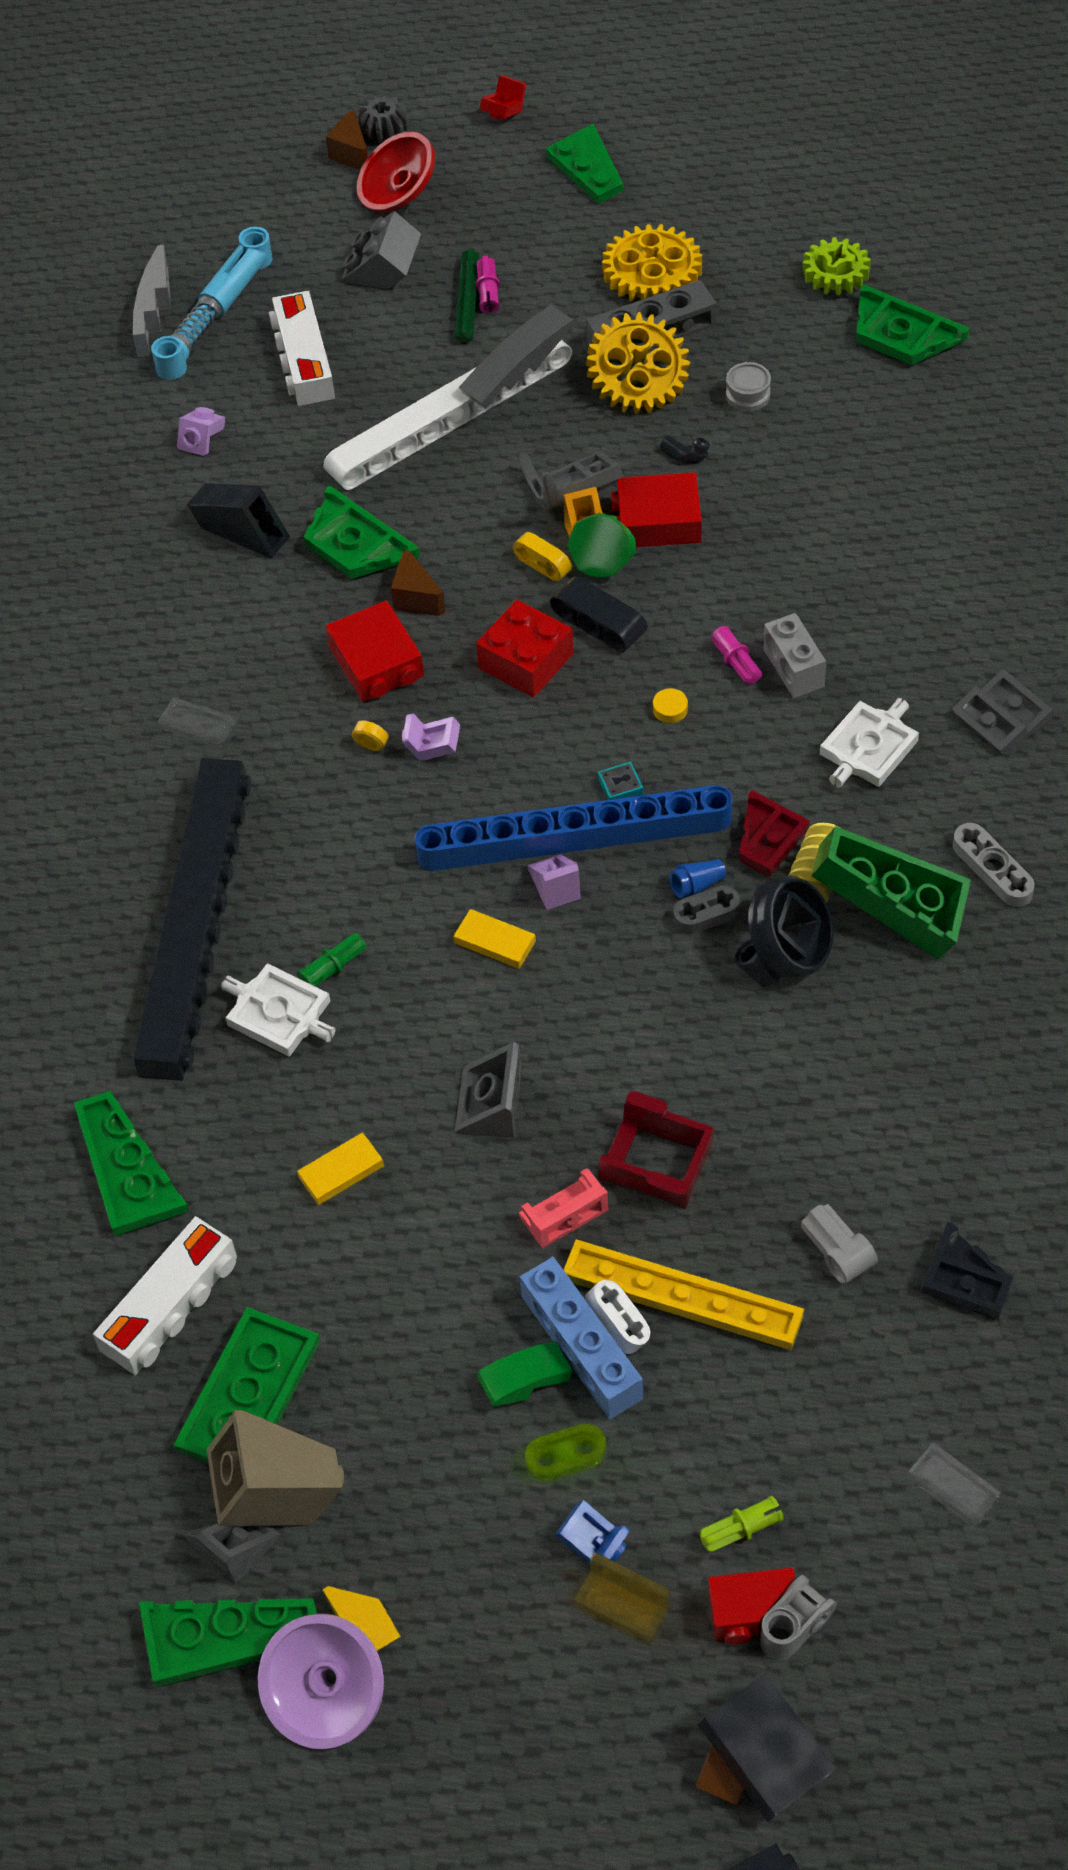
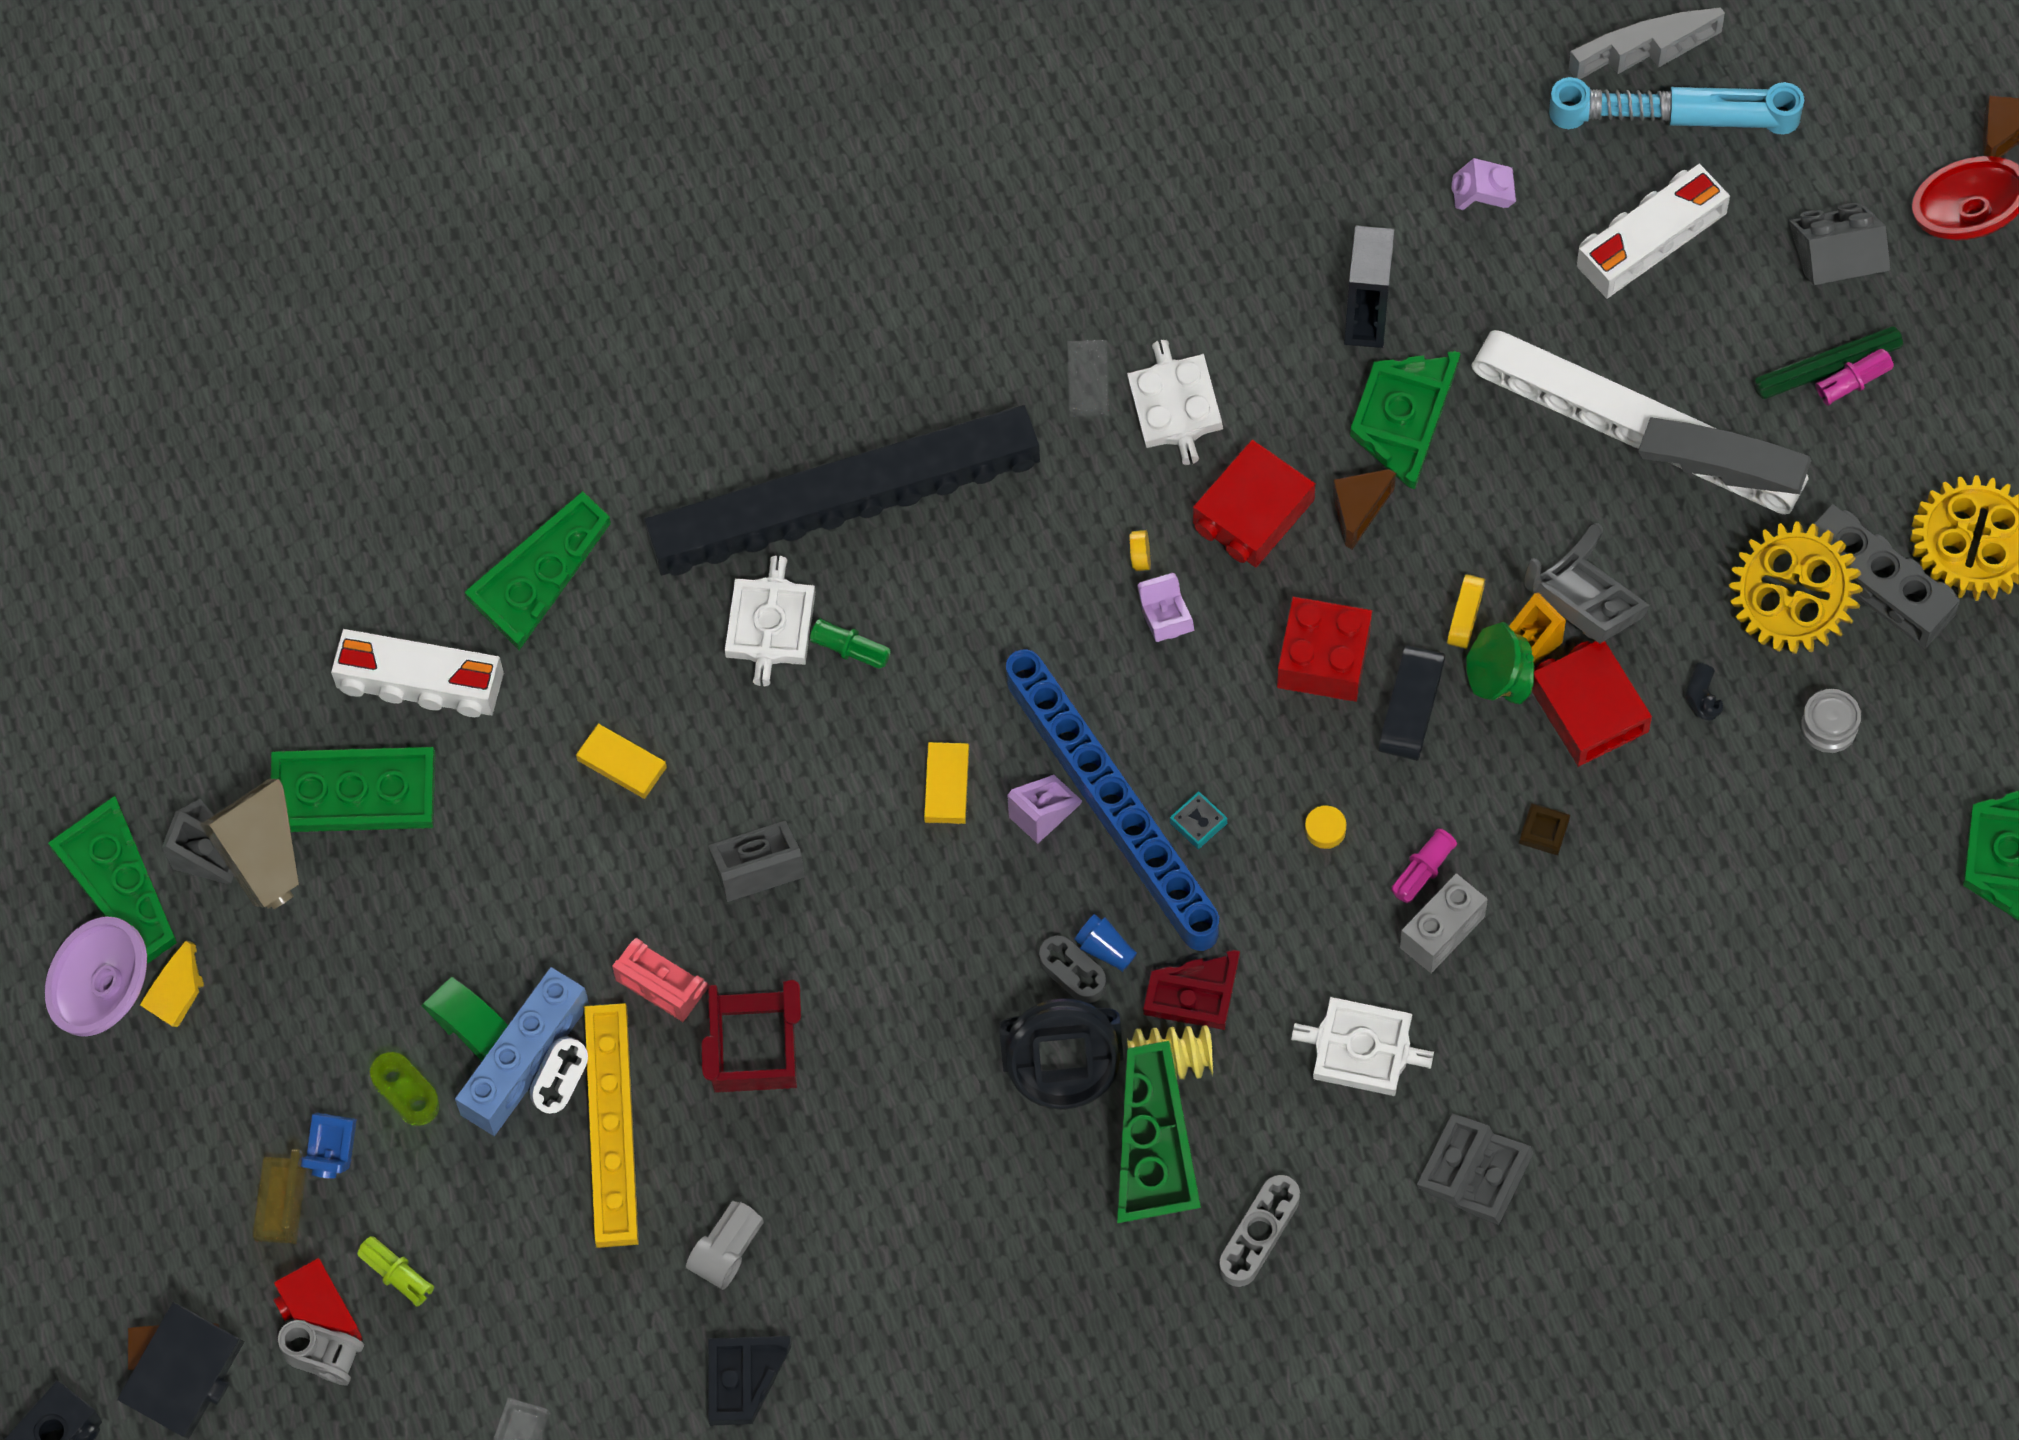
camera: 65 degrees right, 10 degrees up
(254, 673) = (1175, 401): none -> white plate
(743, 576) = (1544, 829): none -> dark brown tile

